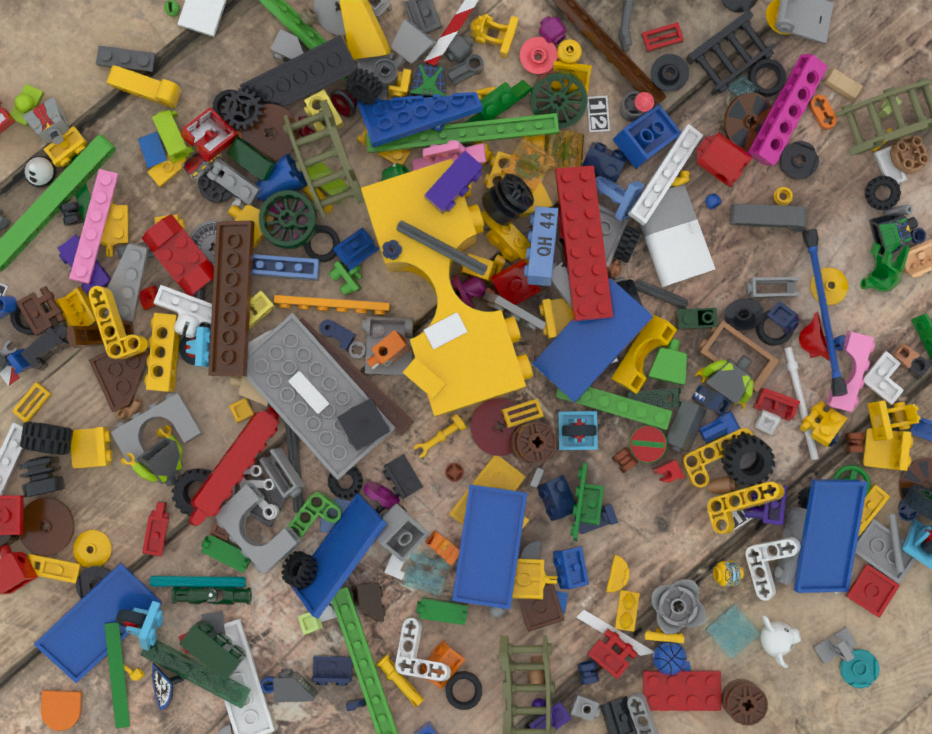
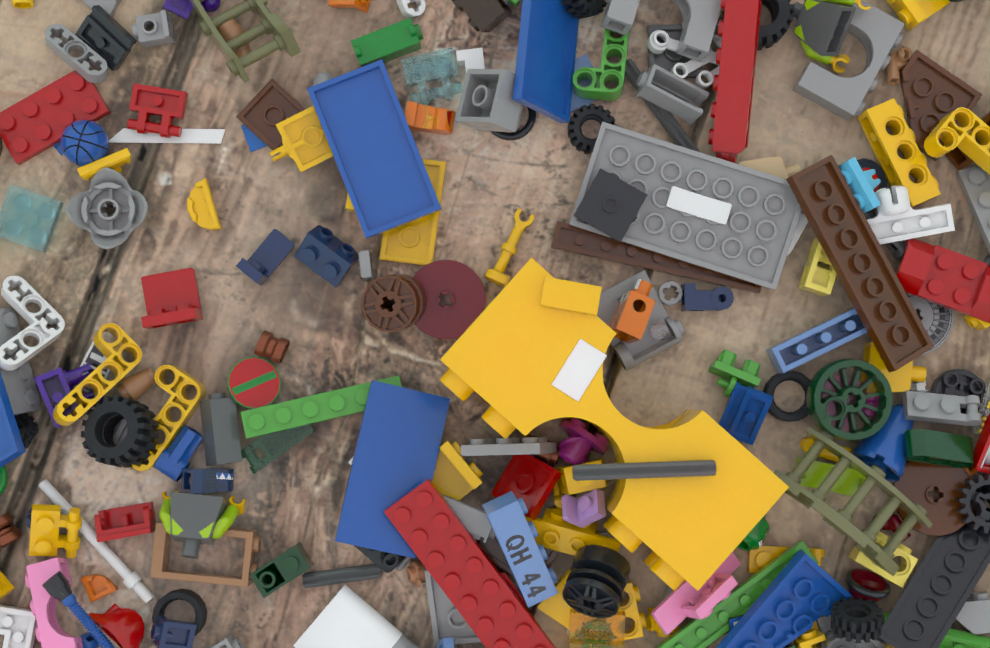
camera: 150 degrees right, 0 degrees up
(148, 296) = (959, 208): red tile -> none
(241, 410) = (764, 141): yellow tile -> none
(323, 304) = (742, 324): light orange plate -> none
(381, 493) = (538, 136): magenta plate -> none
(392, 244) = (705, 439): dark blue plate -> none
(402, 476) = (526, 173): black bracket -> none
(454, 182) = (677, 561): dark purple brick -> none
(454, 472) = (468, 210): copper wheel -> none
(489, 247) = (585, 509): none -> lavender bracket
(507, 418) = (442, 315): yellow tile -> none
(531, 551) = (322, 175): dark grey tile -> none
(570, 568) = (263, 181): blue bracket -> none
(577, 430) = (348, 350): medium azure plate -> none
(588, 672) = (173, 71): dark blue wheel -> none
(589, 503) = (284, 270): green bracket -> none
(627, 244) = (418, 613): black tyre -> none
(627, 610) = (168, 171): yellow tile -> none
(653, 335) = (325, 459): yellow arch -> none
(669, 364) = (283, 495): bright green torso -> none
(670, 470) = (212, 365): red hinge -> none
(670, 527) = (171, 298): none -> red bracket
(728, 573) = (71, 283): head -> none
(744, 308) = (230, 617): black dish -> none
(767, 422) = (124, 493): white tile -> none
(815, 374) = (98, 586): none -> orange tile

